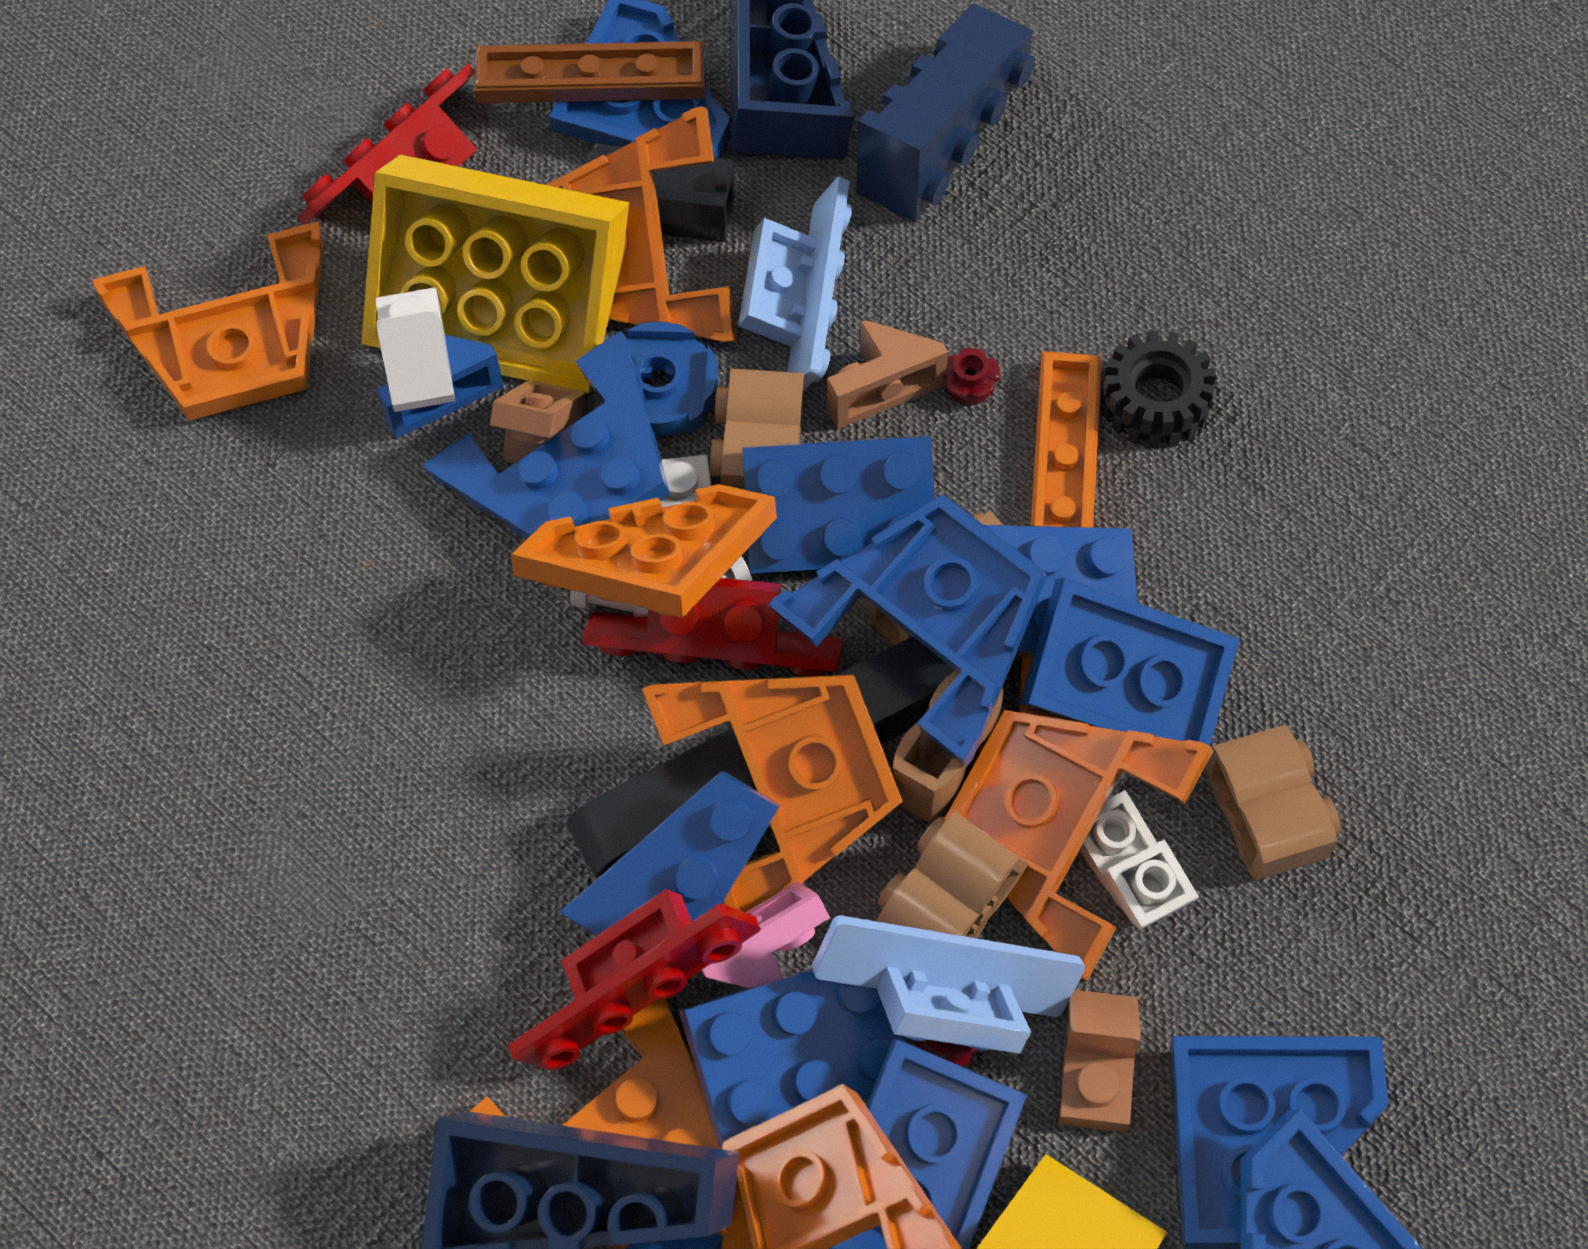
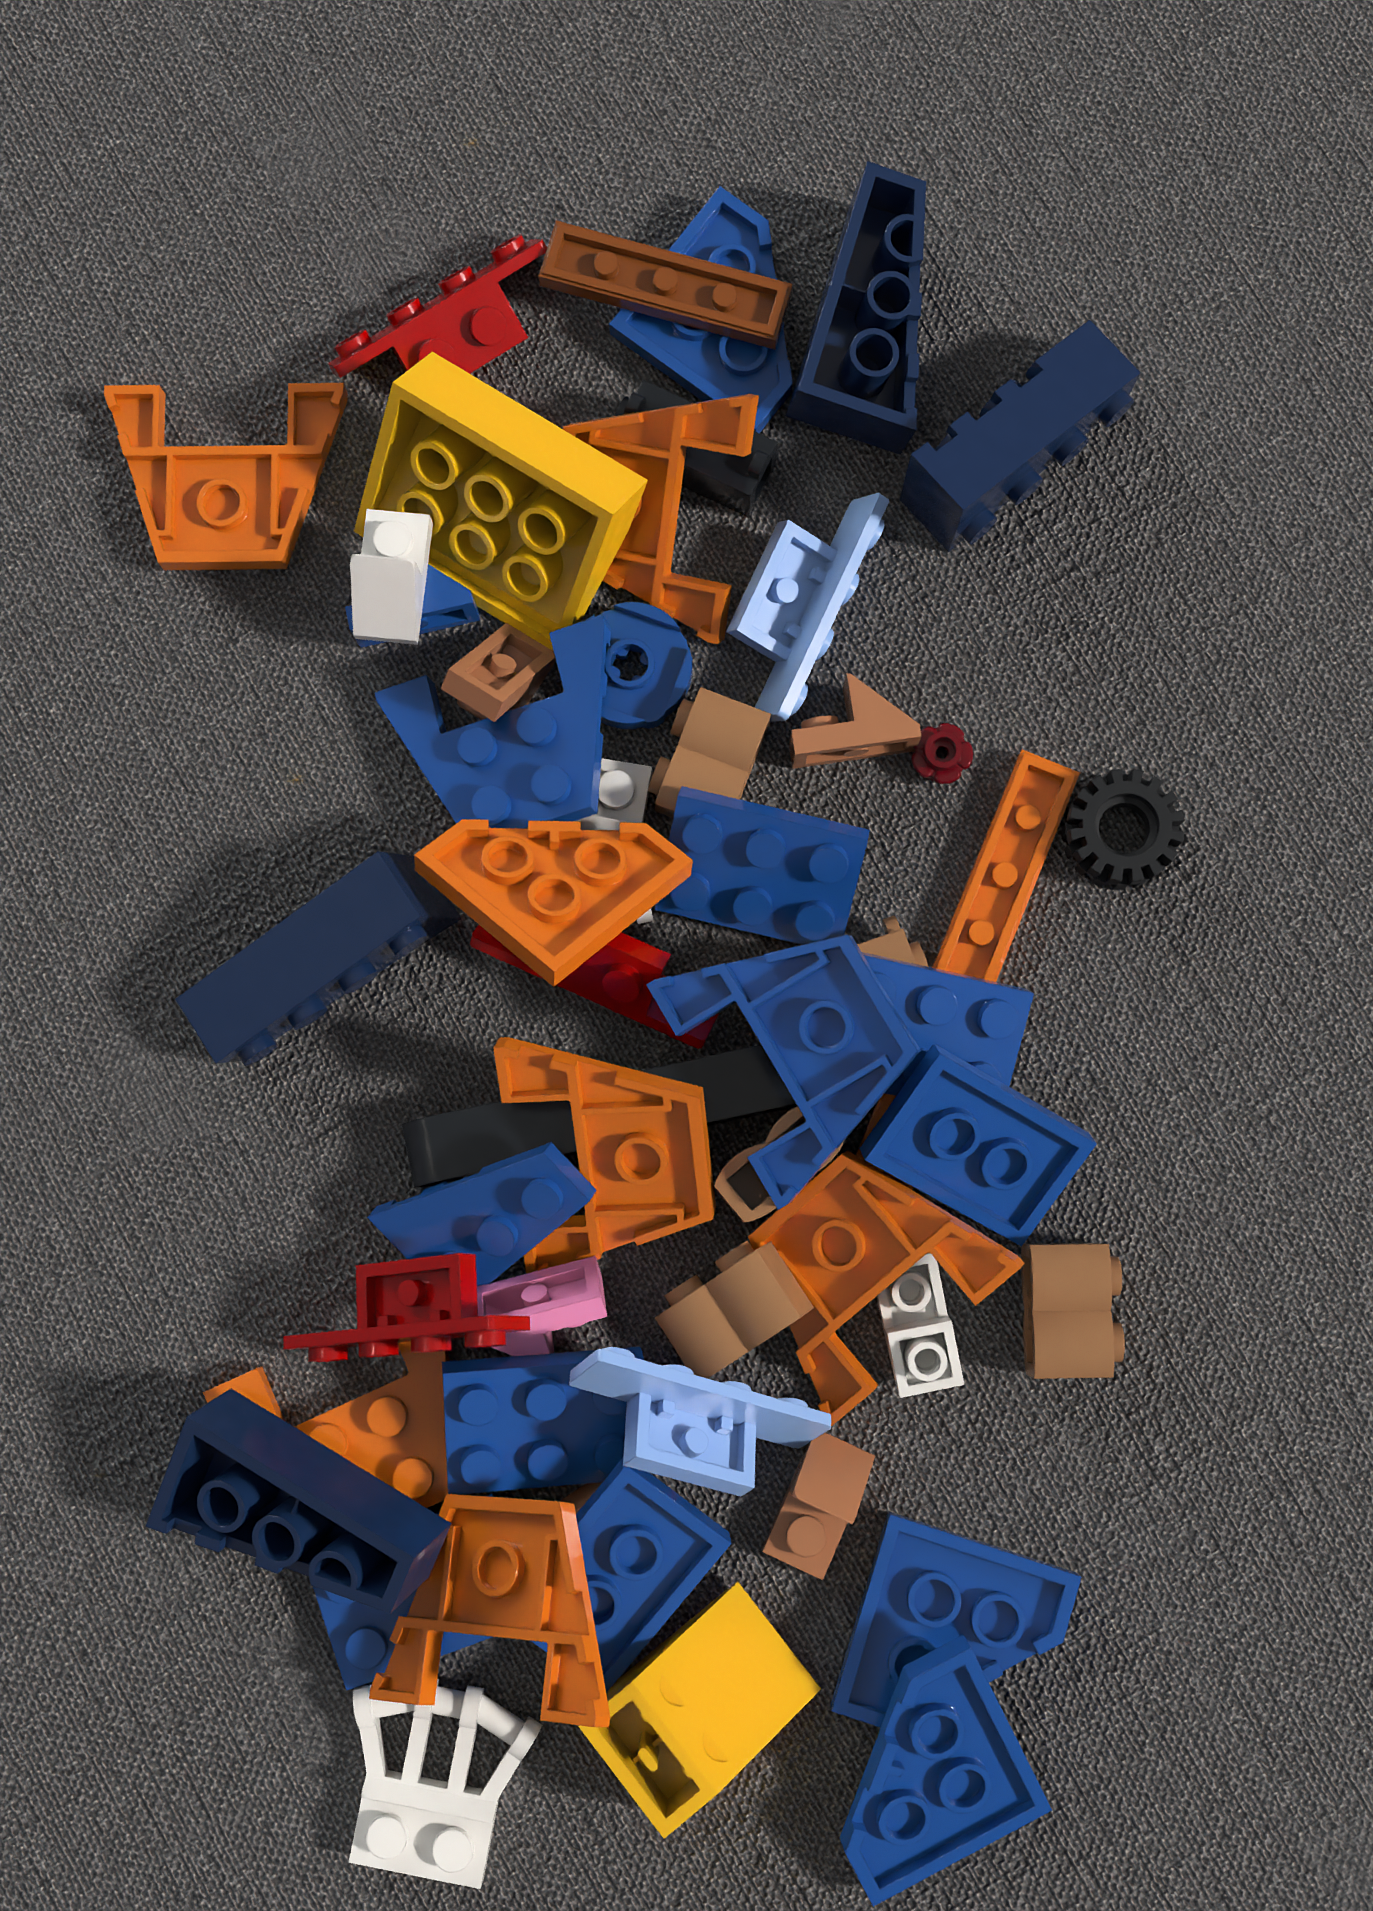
camera: 20 degrees right, 20 degrees up
(437, 692) = (316, 957): none -> dark blue wedge

